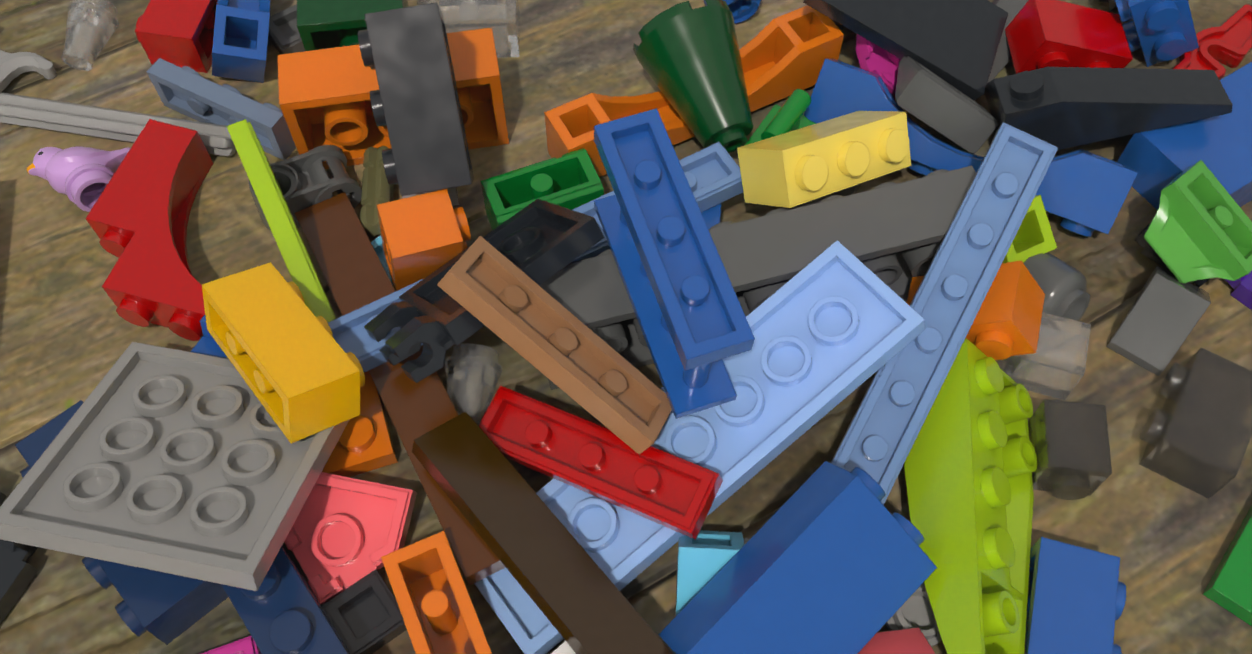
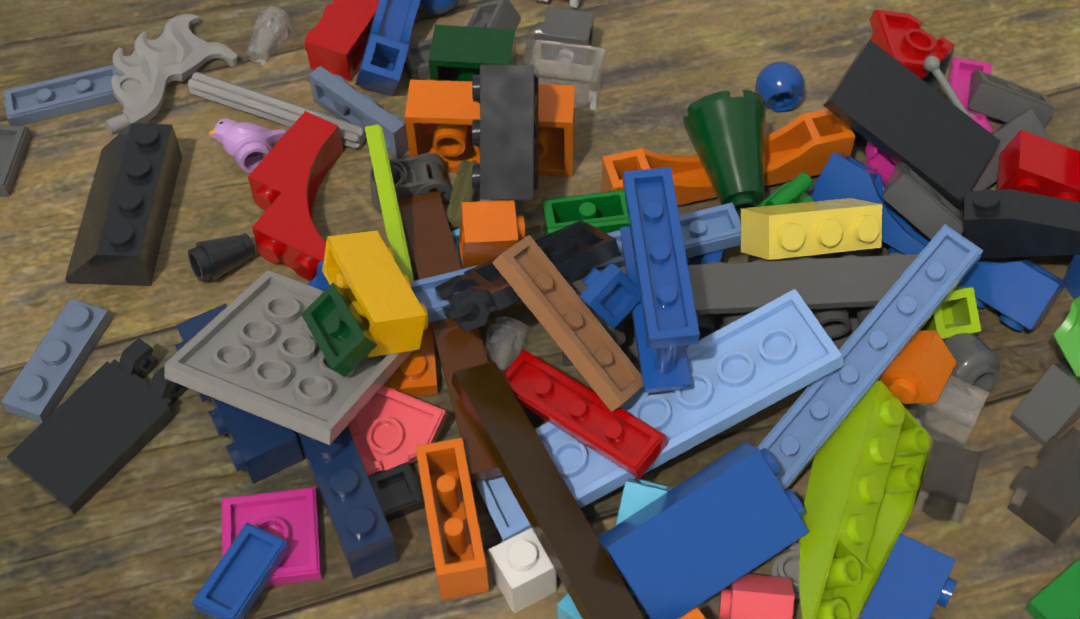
camera: 15 degrees right, 5 degrees down
(68, 331) = (219, 256): none -> black cone
(241, 416) = (338, 330): none -> dark green plate
(604, 294) = (610, 294): none -> blue tile

